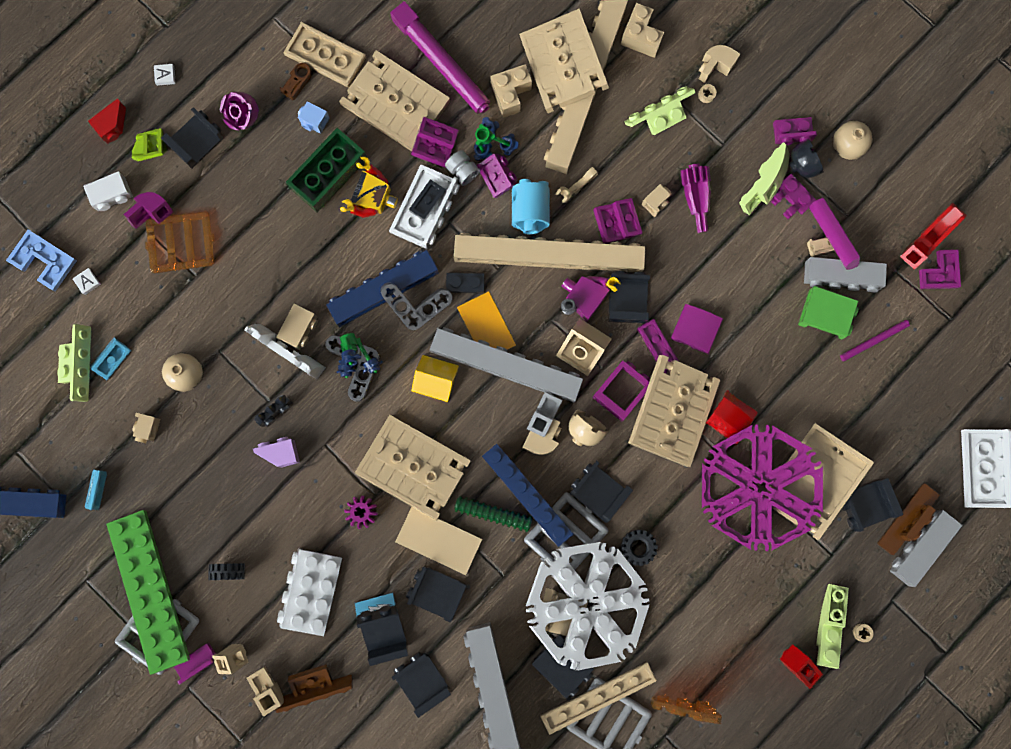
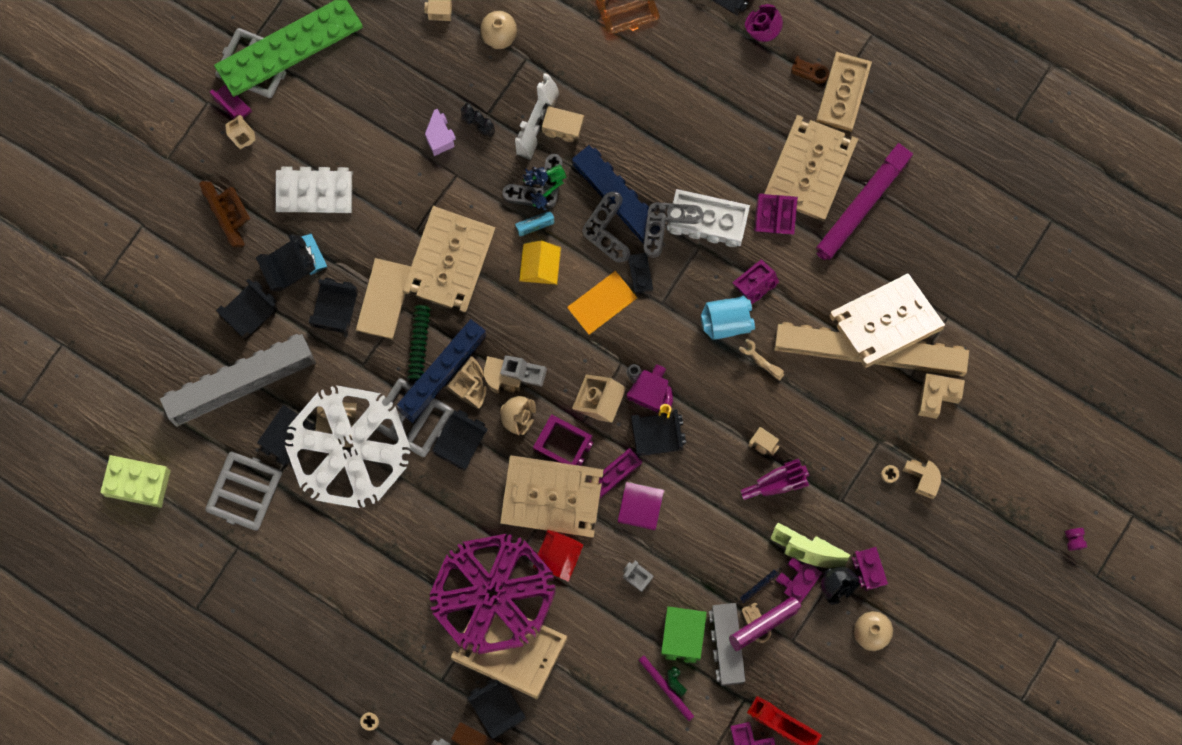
camera: 80 degrees right, 5 degrees down
(226, 571) = (318, 111): black tyre -> none
(267, 692) = (215, 172): tan brick -> none
(313, 117) = (774, 93): light blue brick -> none
(326, 170) = (723, 117): dark green brick -> none
(363, 505) = (392, 226): magenta gear -> none
(370, 193) = (709, 164): torso -> none
(392, 375) = (535, 223): none -> medium azure slope
(420, 249) = (660, 220): none -> flat silver beam
(427, 200) = (715, 218): black plate -> none
(460, 165) = (753, 247): light grey wheel -> none
(486, 134) = (783, 261): plant -> none
(506, 365) = (565, 327): light grey brick -> none
(507, 86) = (847, 271): tan brick -> none
(543, 472) = (468, 383): none -> tan brick
(549, 253) = (686, 349): tan brick -> none
(598, 698) = (262, 475): tan tile -> none
(617, 221) = (735, 408): magenta slope -> none
(650, 543) = (412, 499): black tyre -> none
(663, 114) = (857, 432): yellowish green bracket -> none
(698, 711) = (266, 570): clear orange plate -> none
(765, 345) = (637, 575): none -> light grey bracket
(790, 234) = (766, 578): none -> dark blue piece
(801, 666) = (325, 664): red slope -> none
(831, 625) = (370, 687): yellowish green slope -> none
(863, 331) = (673, 681): none -> dark green arm

